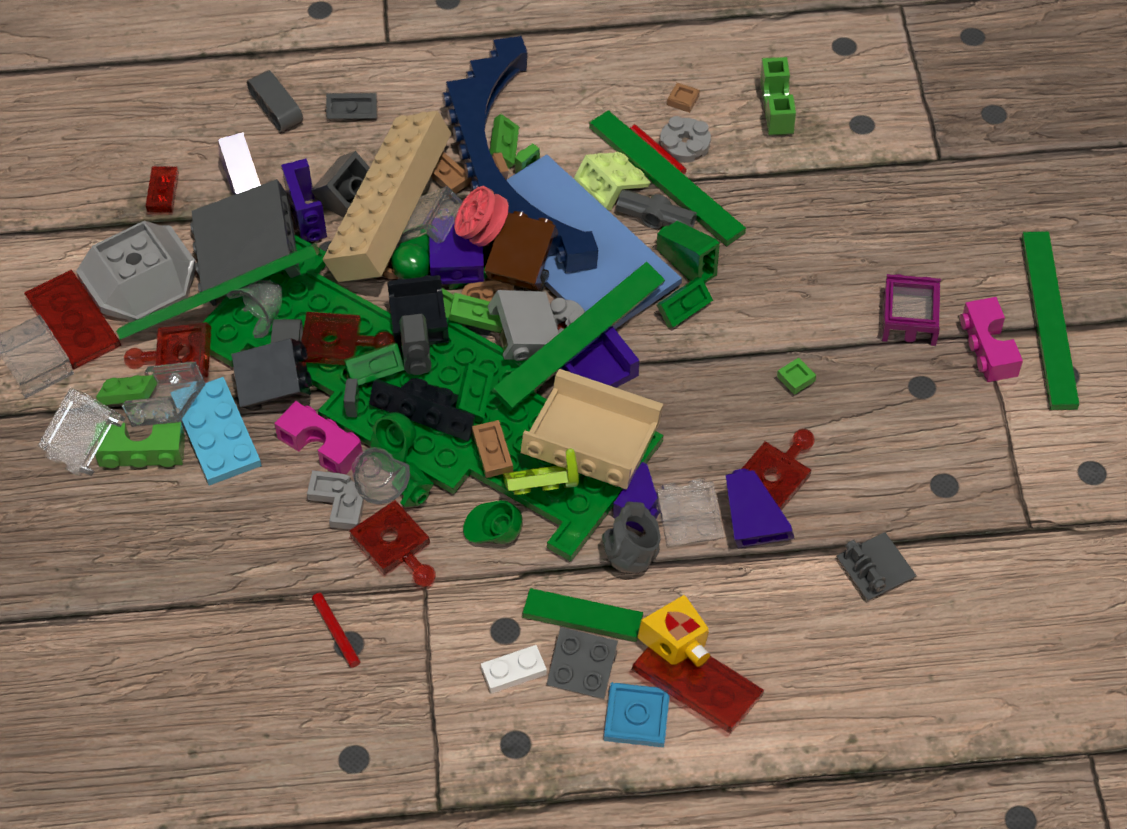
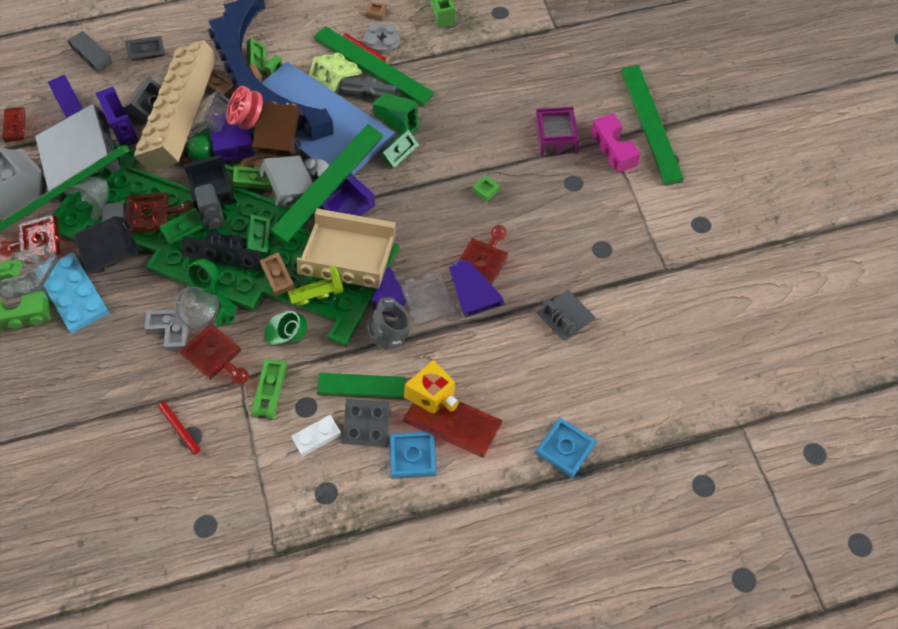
camera: 10 degrees left, 5 degrees up
(303, 425) = (135, 278): dark pink arch -> none
(351, 397) = (168, 252): dark grey tile -> none
(460, 598) = (269, 388): none -> bright green plate
(843, 739) = (566, 447): none -> dark azure tile

